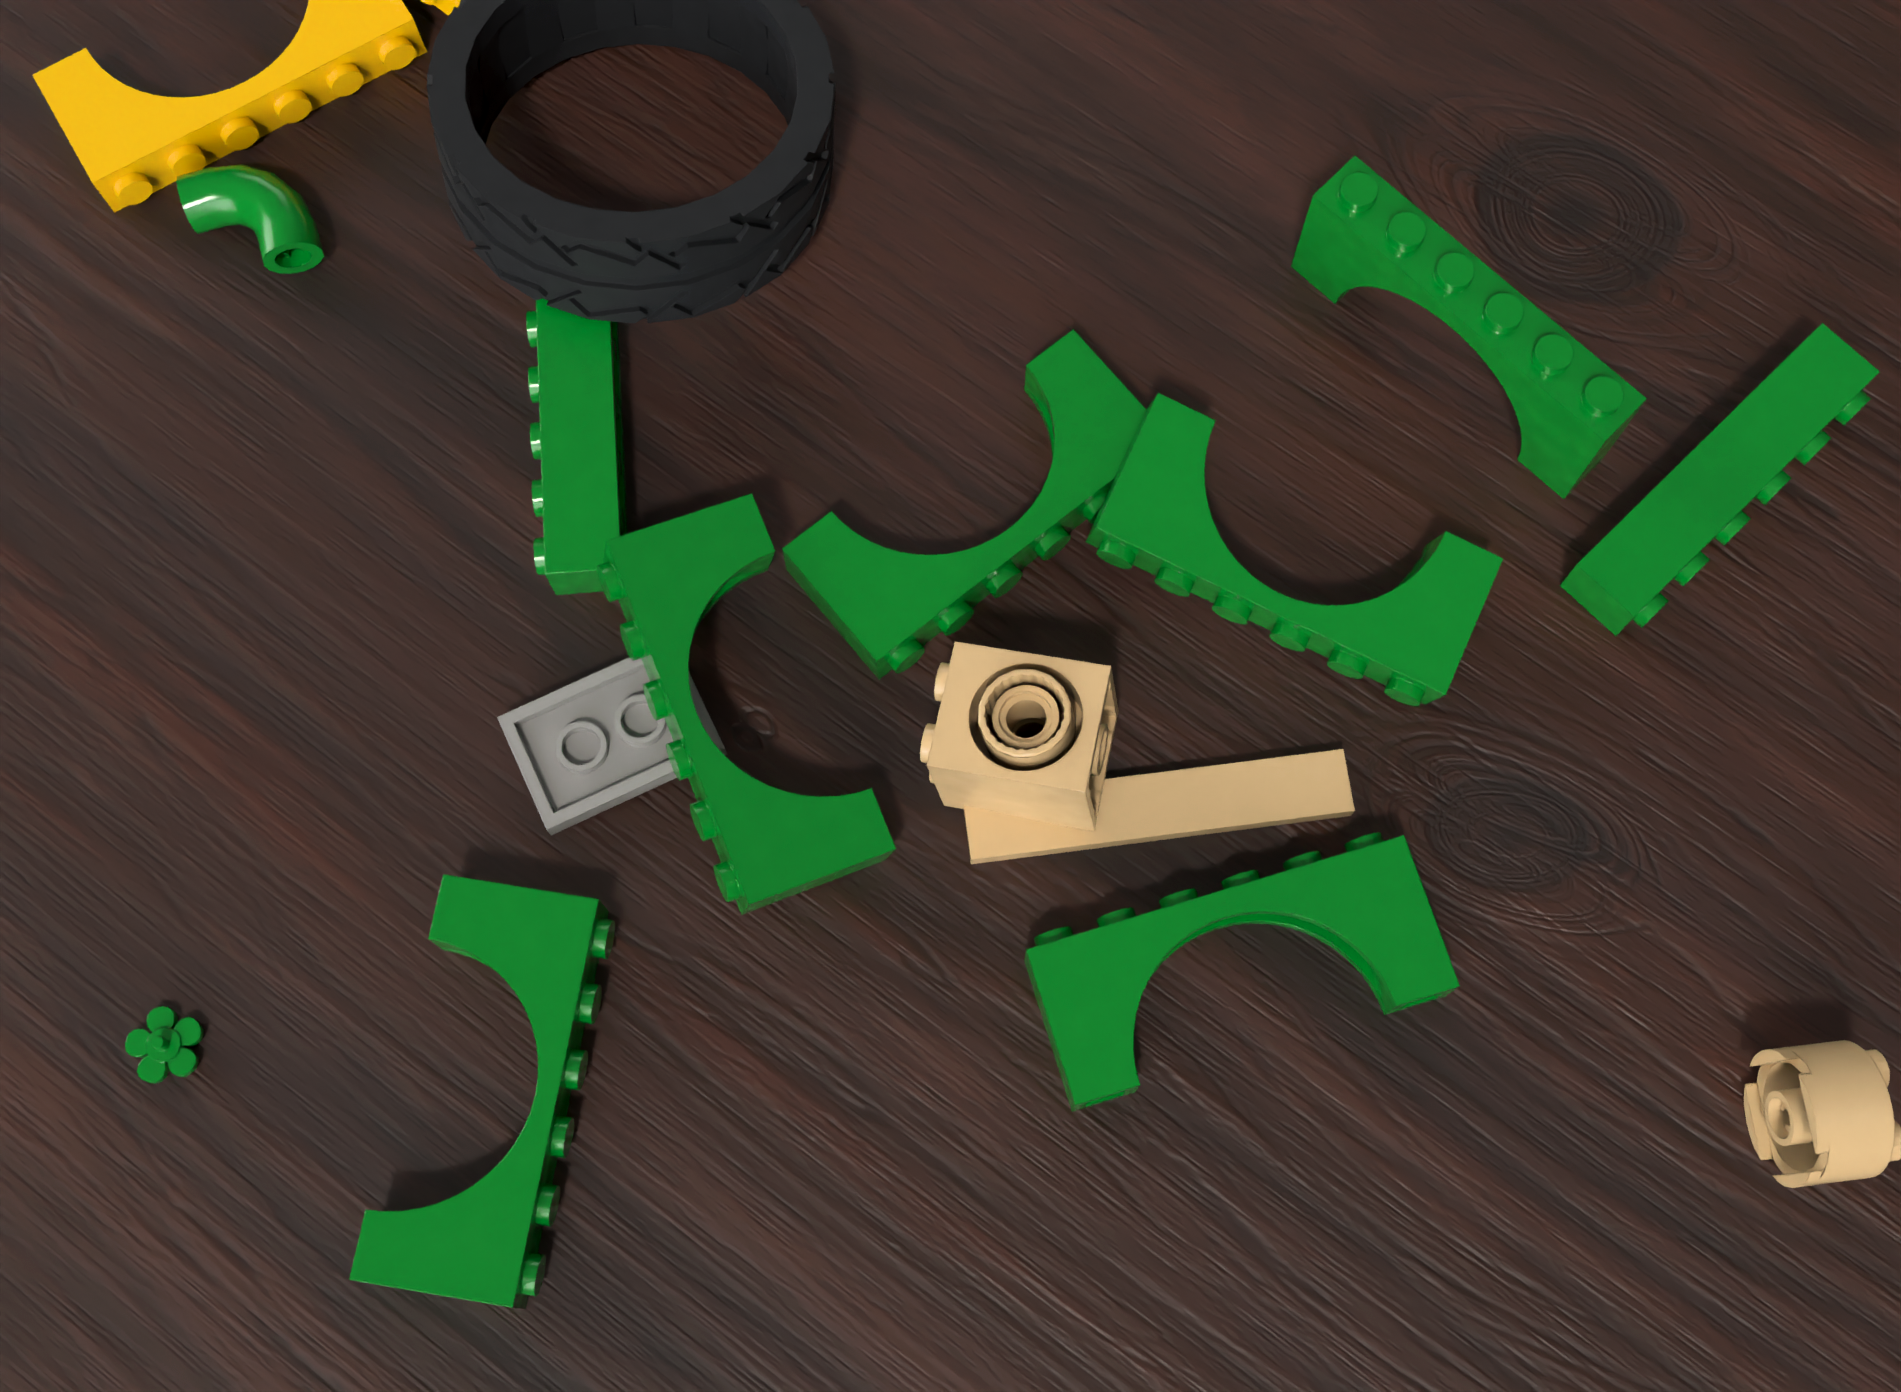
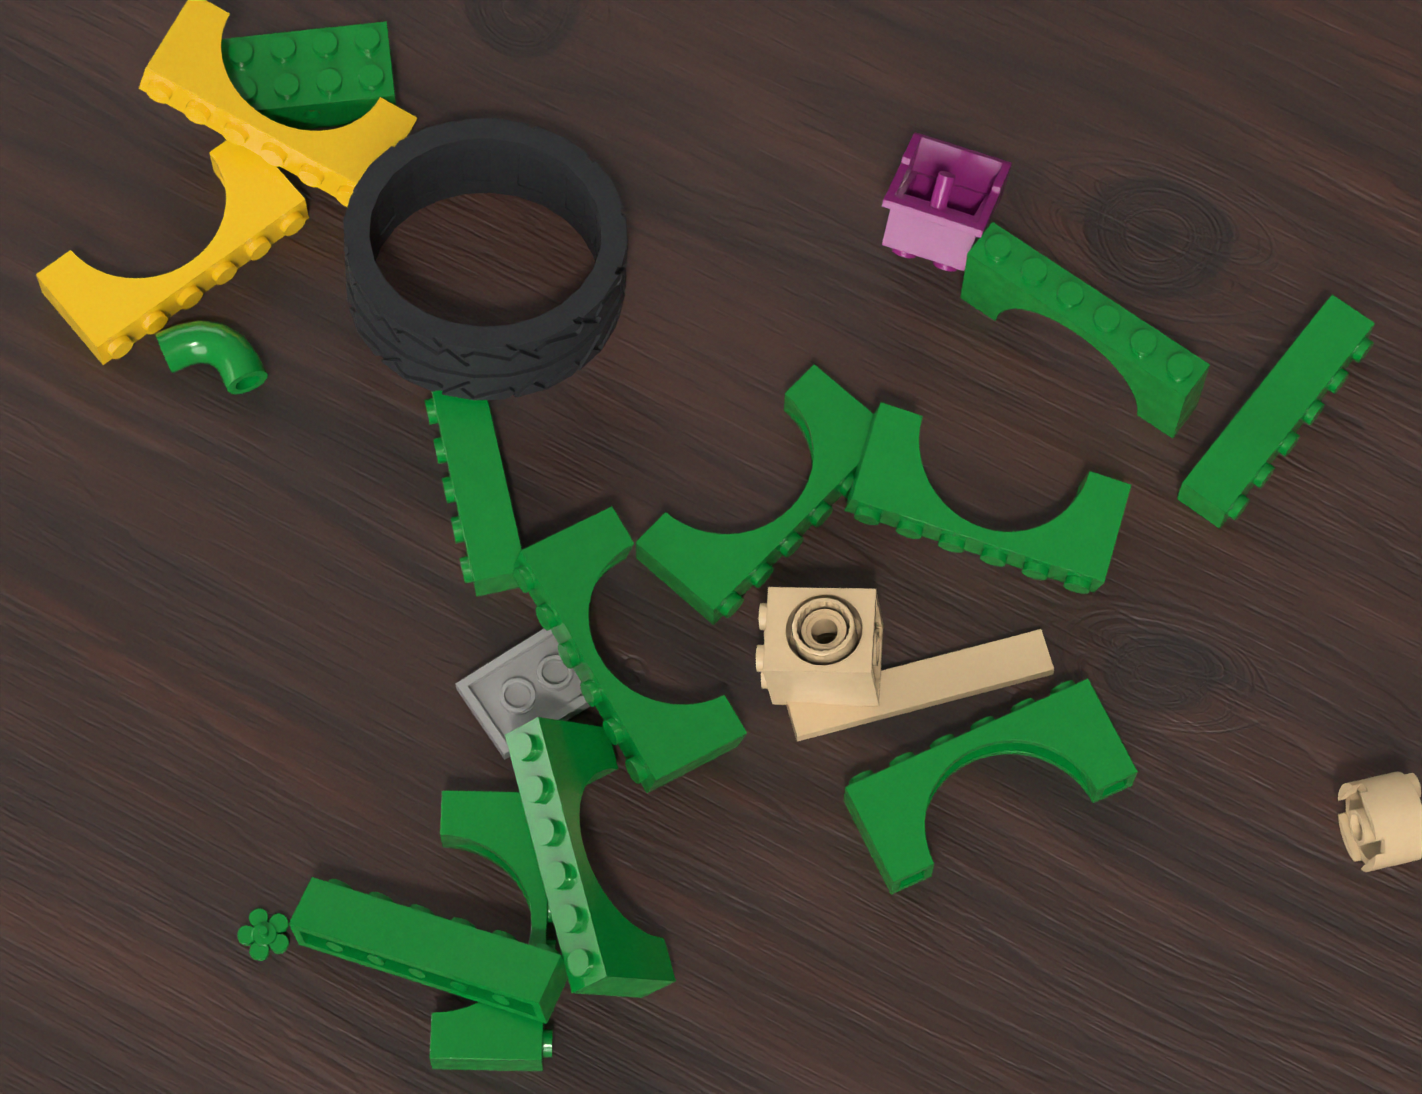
camera: 10 degrees left, 5 degrees down
(382, 1116) = (430, 948): none -> green brick
(614, 1138) = (596, 941): none -> green arch
(1284, 124) = (942, 201): none -> magenta piece

